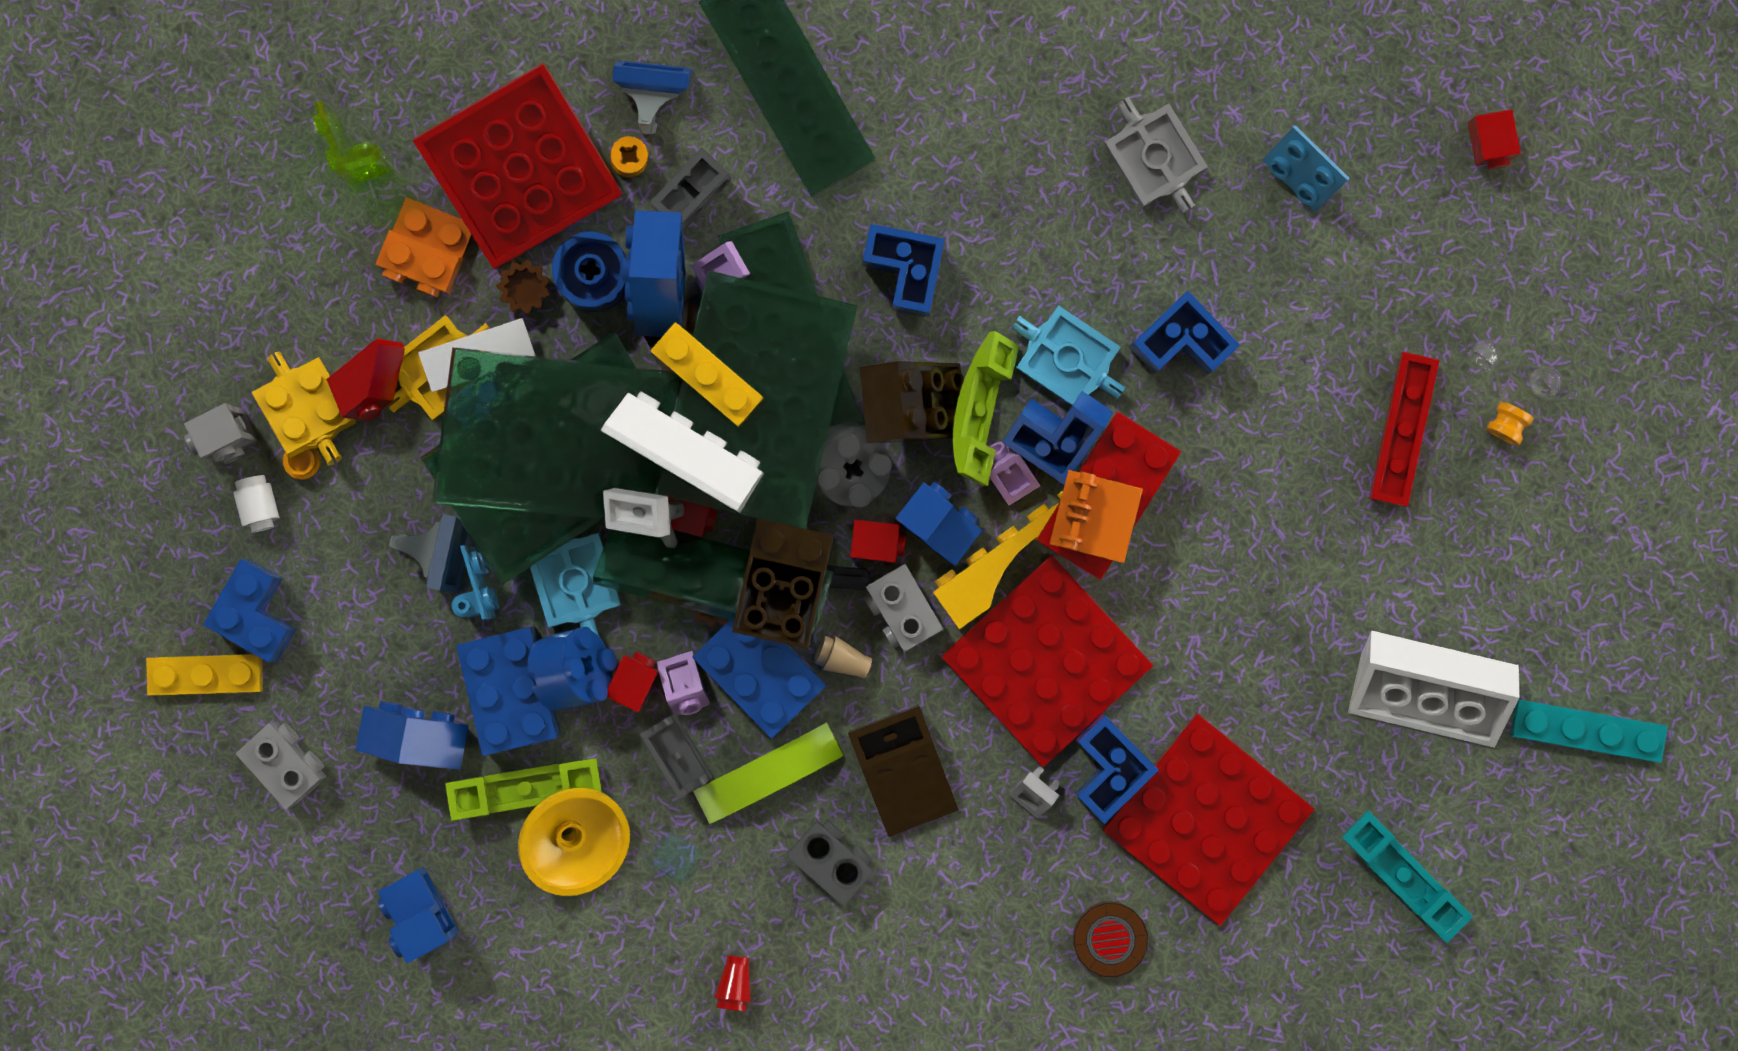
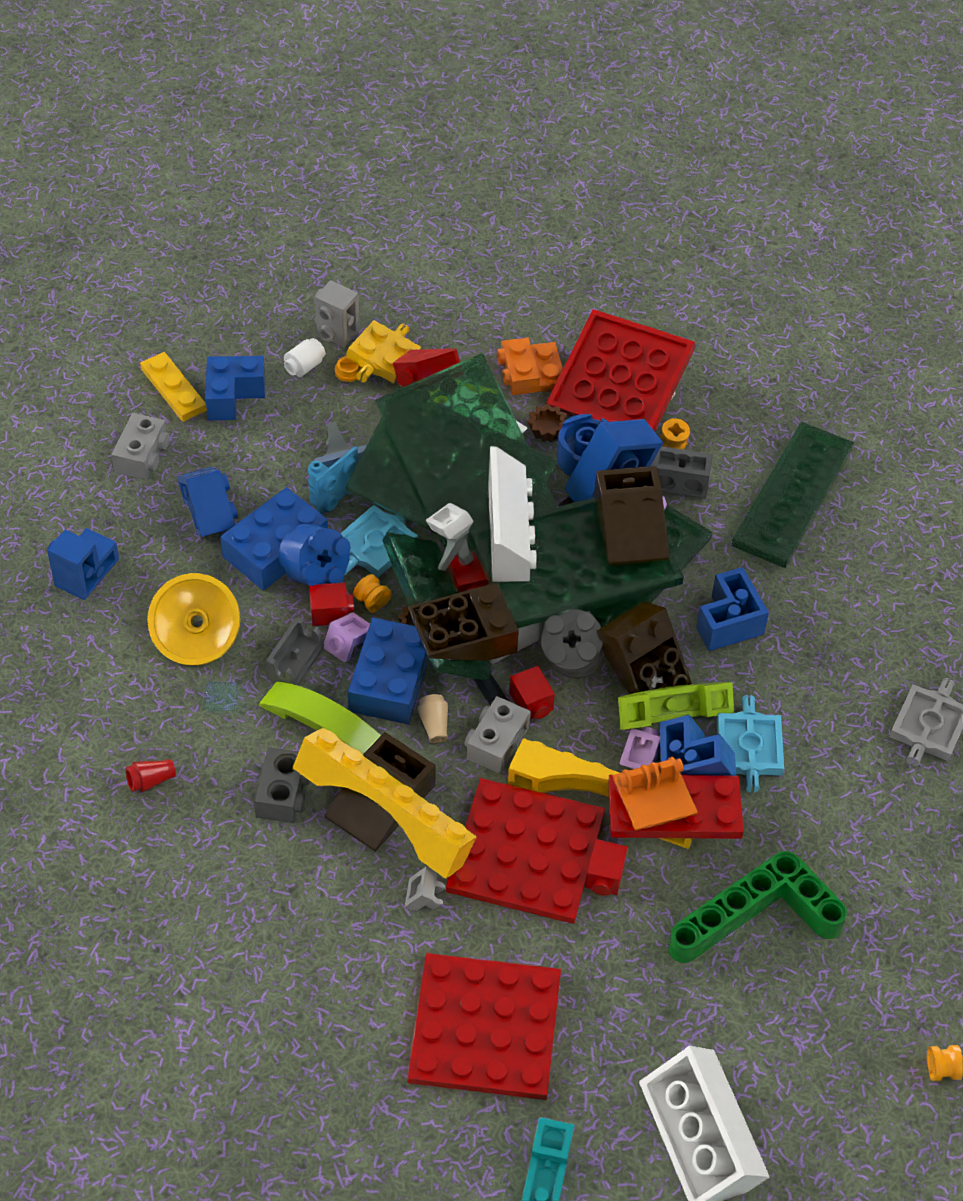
camera: 55 degrees right, 35 degrees down
(364, 159) = (560, 294): clear neon green bracket -> none
(518, 788) = (191, 557): lime slope -> none
(645, 627) = (372, 593): none -> light orange wheel
(650, 87) = (726, 425): blue piece -> none
(707, 374) = (570, 515): yellow plate -> none
(760, 316) = (631, 515): none -> dark brown slope
(938, 523) = (574, 713): blue brick -> none
(991, 761) = (435, 836): none -> yellow arch
(1110, 939) = (344, 1007): tile -> none
(1121, 601) = (606, 867): none -> red brick
(1121, 772) = (476, 931): blue brick -> none
(1188, 328) = (827, 795): blue brick -> none
(1245, 483) = (752, 902): none -> green beam
(1404, 429) = (879, 991): red plate -> none

